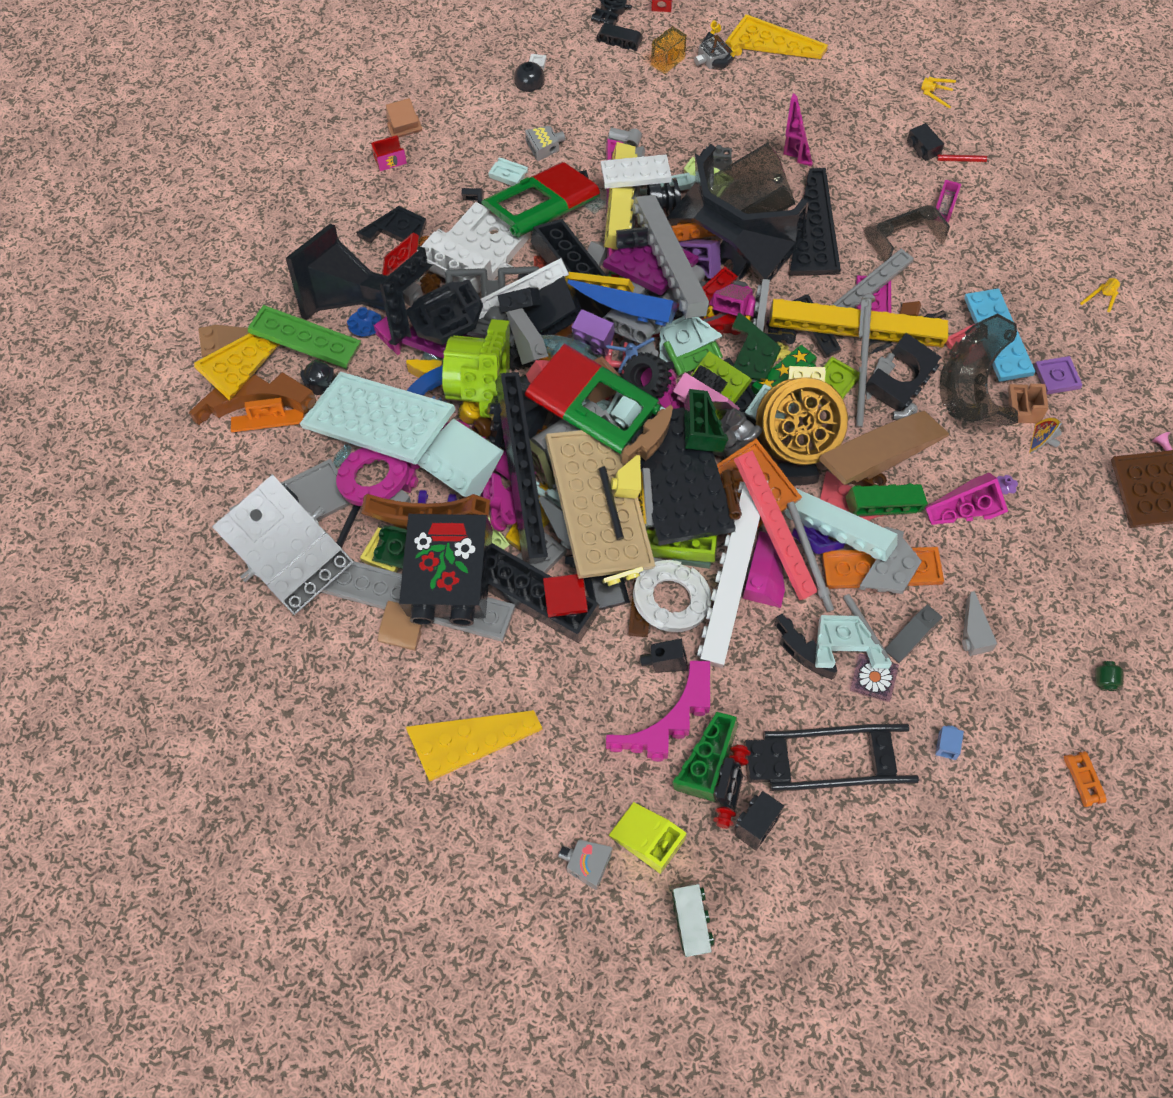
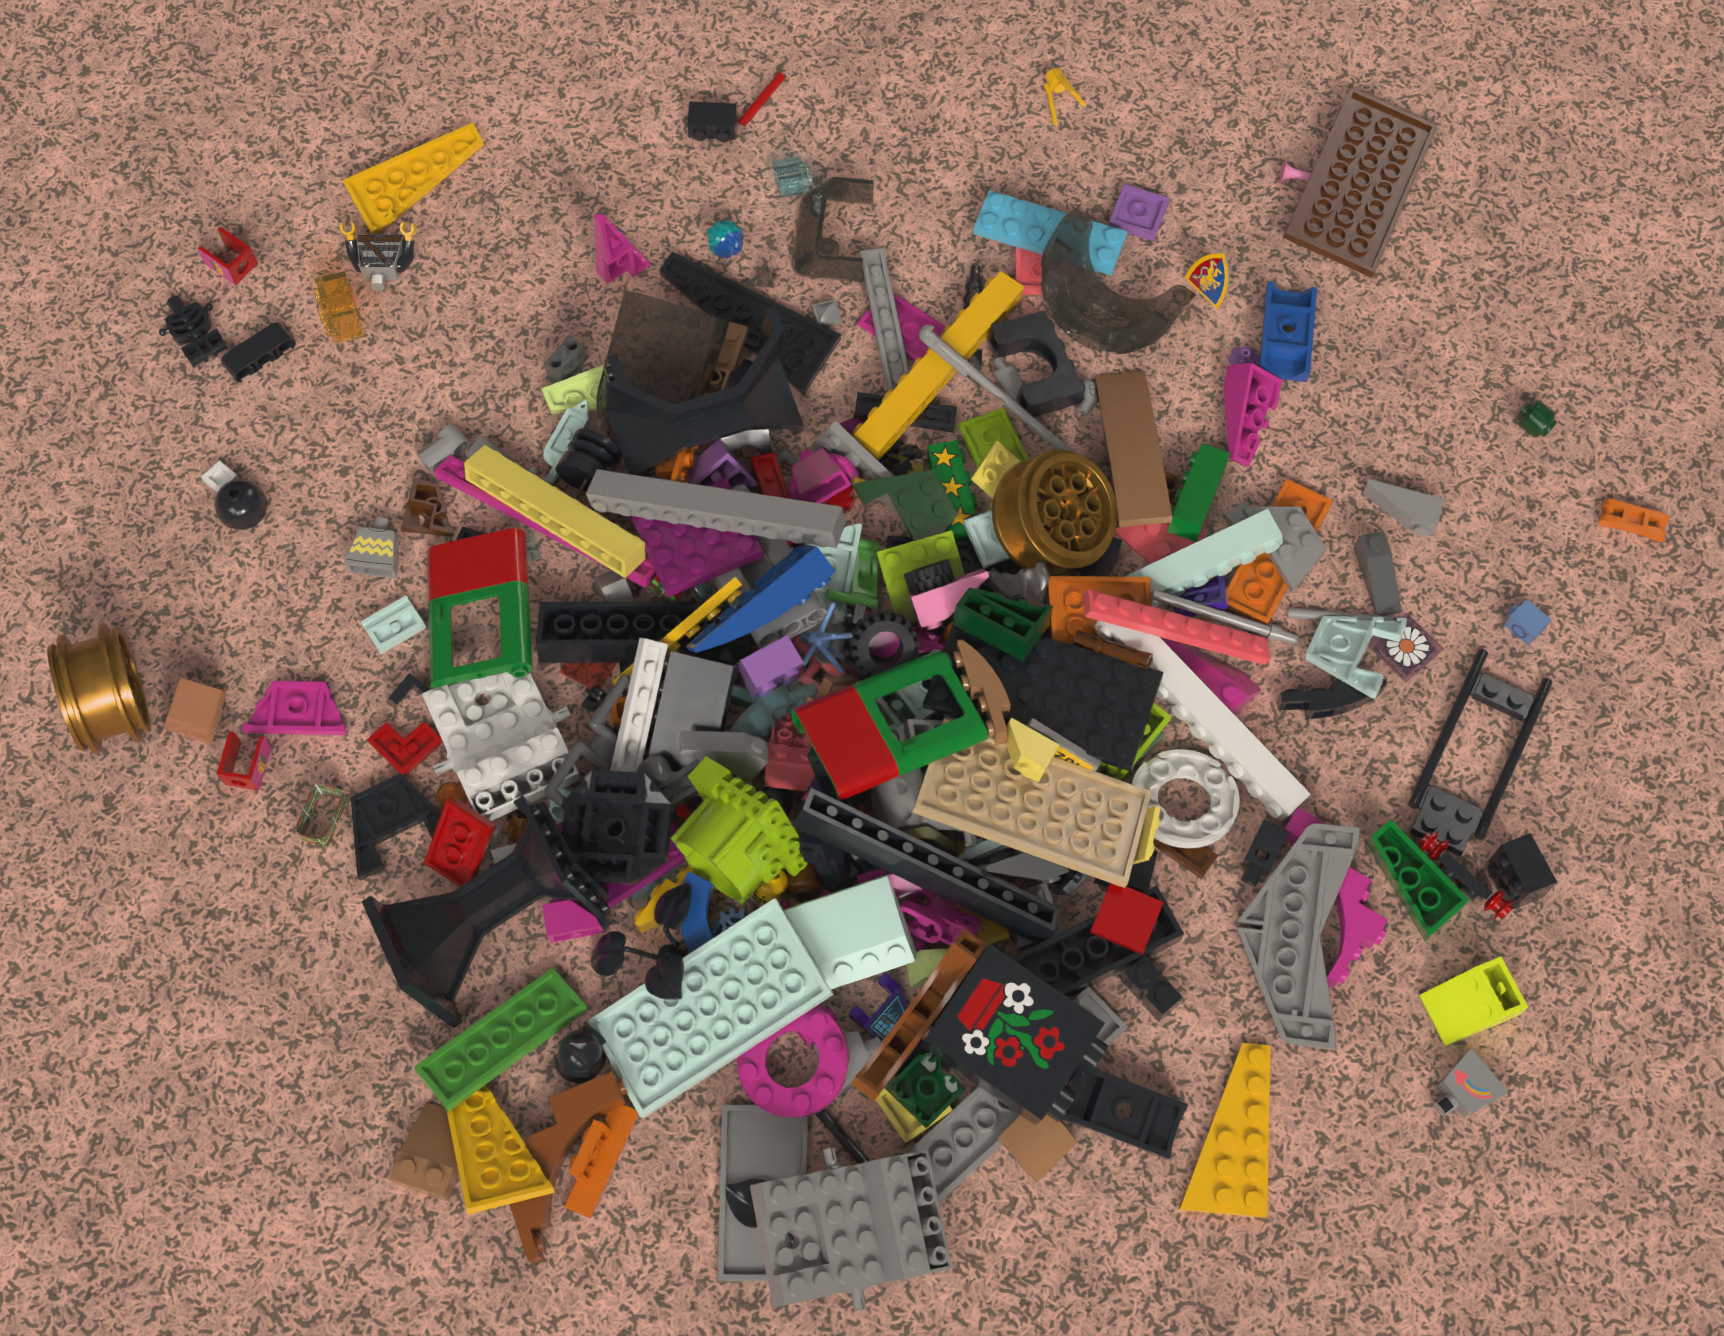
camera: 60 degrees left, 5 degrees up
(341, 455) = (731, 1085): clear light blue tile -> none
(363, 322) = (522, 947): blue dish -> none
(376, 379) = (666, 977): none -> black plant
(379, 68) = (98, 688): none -> pearl gold wheel
(379, 193) = (309, 809): none -> clear piece
(432, 160) = (296, 709): none -> dark pink wing
(440, 214) = (405, 753): none -> red plate
(446, 681) = (1152, 1118): none -> black piece
(519, 299) = (663, 726): black brick -> none
(531, 644) = (1161, 995): none -> black piece
(589, 147) = (426, 501): none -> reddish brown slope
(611, 503) = (1049, 790): black bar -> none
(626, 412) = (928, 698): light aqua brick -> none
(631, 237) = (656, 534): black hips -> none
(635, 694) = (1289, 947): none -> light grey wing
(636, 171) = (540, 469): white plate -> none
(691, 918) = (1592, 1009): wedge -> none
(846, 218) = (762, 279): none -> clear smoke piece
(850, 258) = (827, 313): none -> light grey tile
(854, 185) = (725, 238): none -> piece
(911, 308) = (949, 299): dark orange tile -> none
(921, 193) = (791, 176): none -> clear light blue brick
(930, 84) = (626, 56): yellow plant -> none
(948, 198) = (818, 155): window -> none
(1027, 502) = (1282, 352): none -> blue piece
(1029, 402) = (1161, 266): nougat plate -> none

